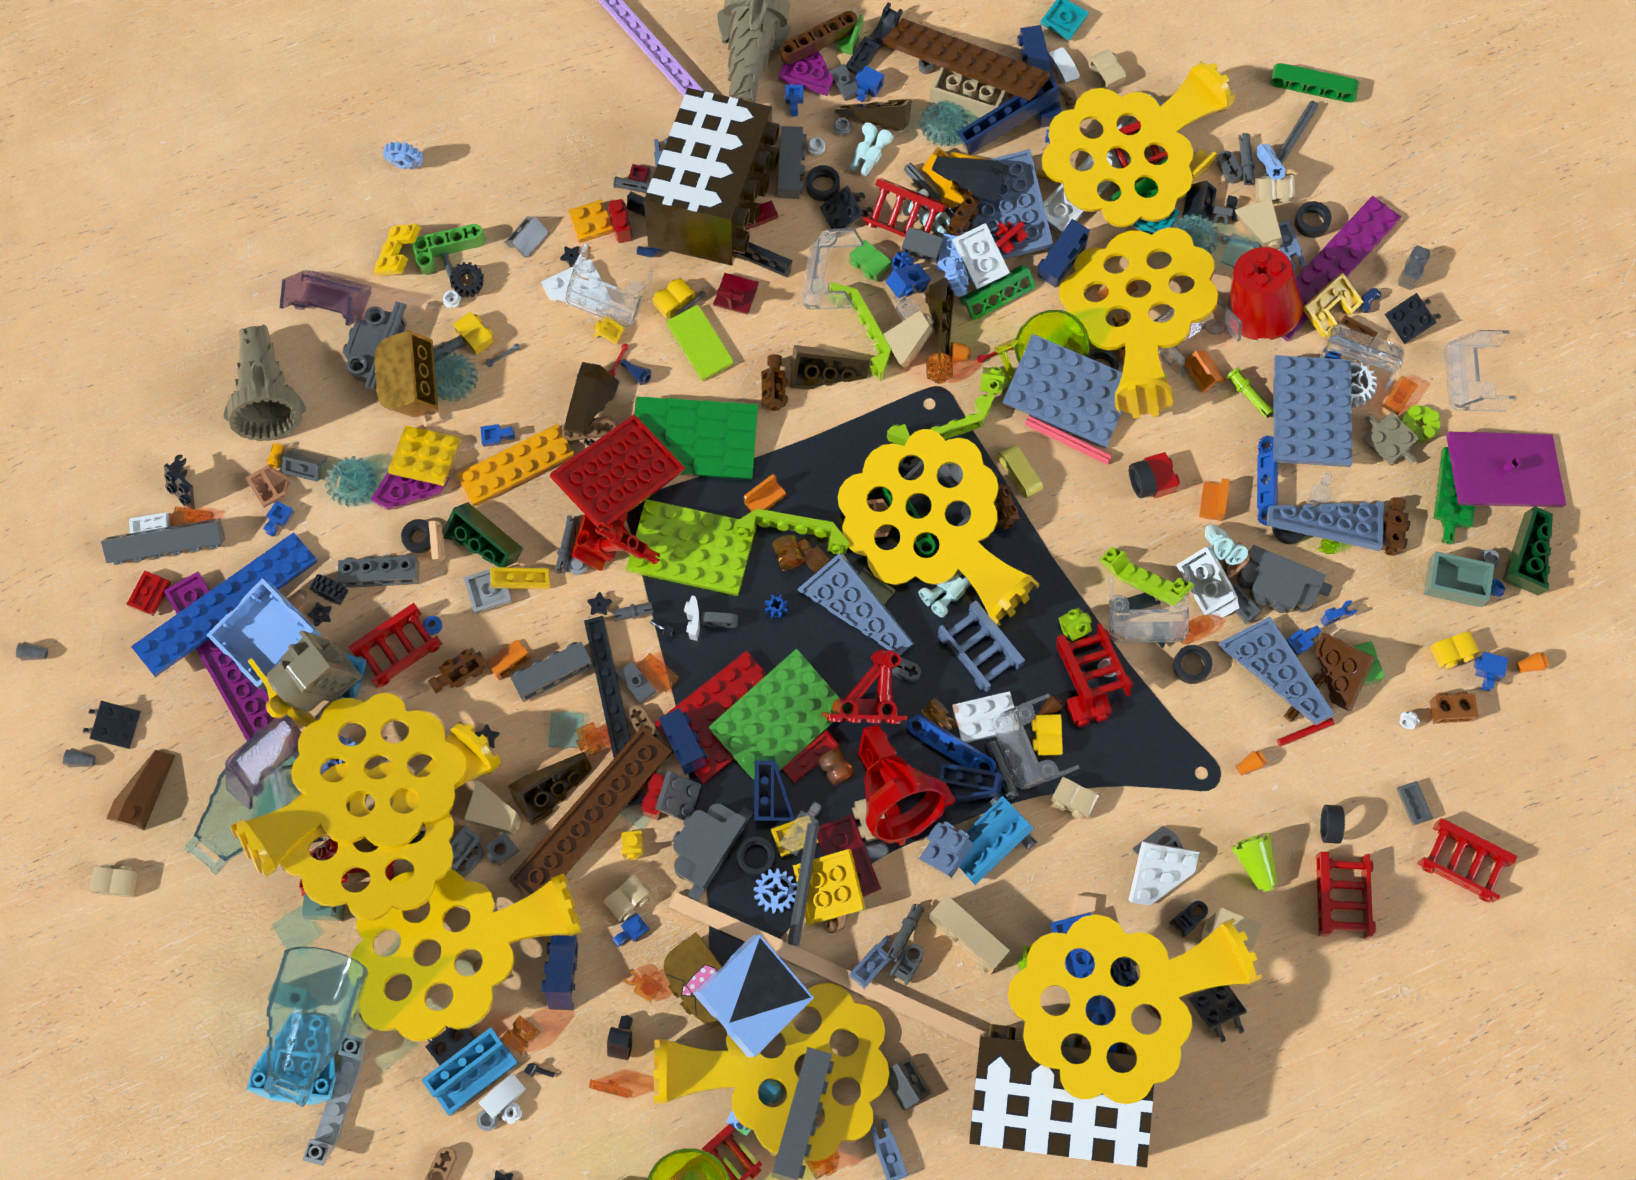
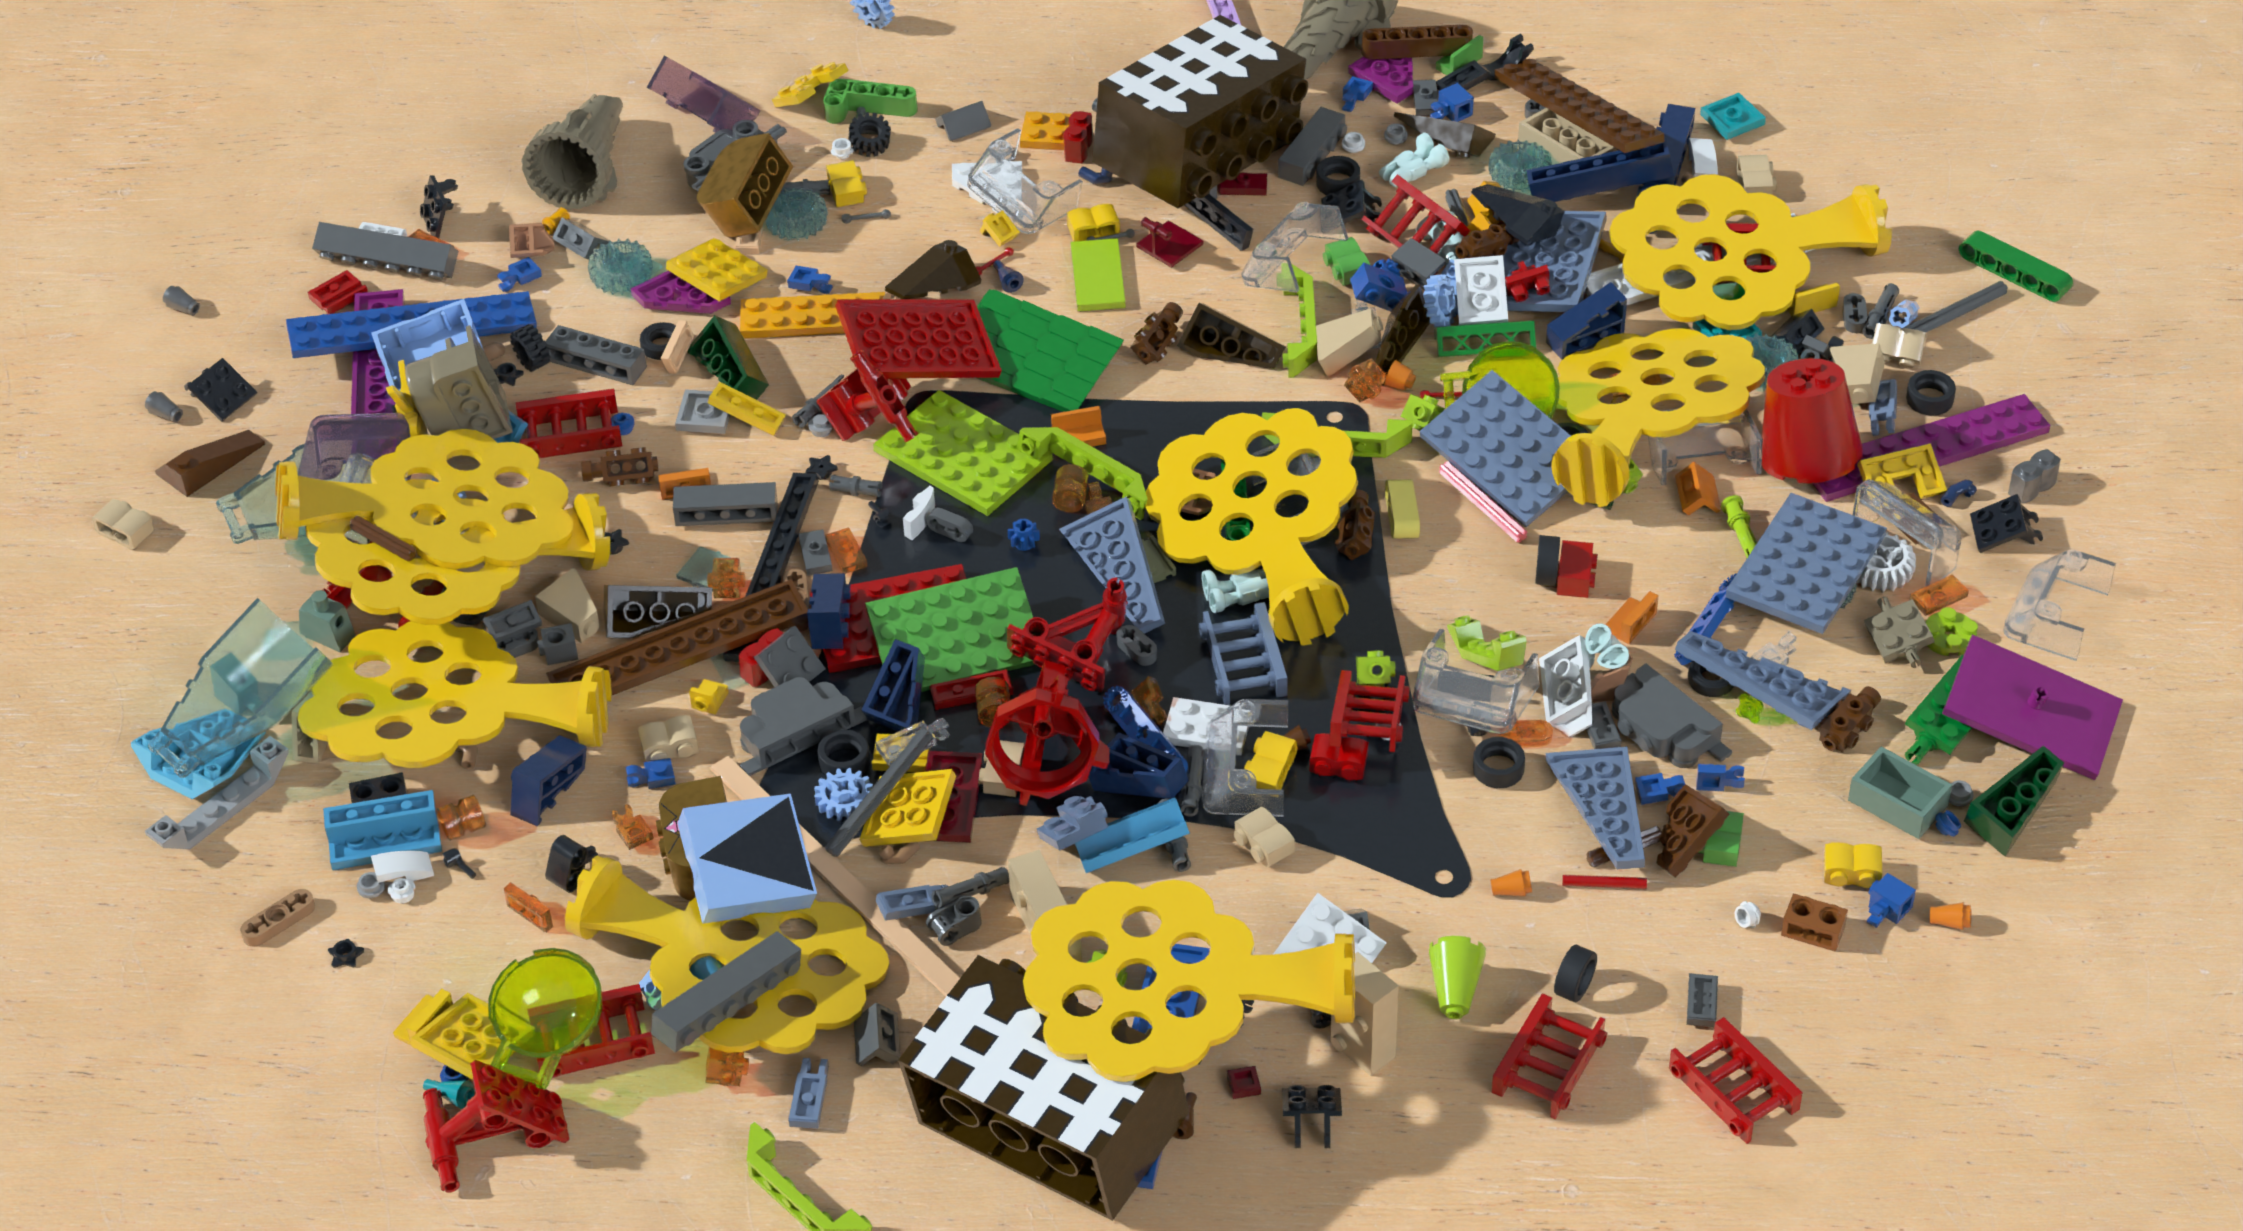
camera: 25 degrees right, 25 degrees down
(343, 847) = (383, 538): none -> reddish brown axle

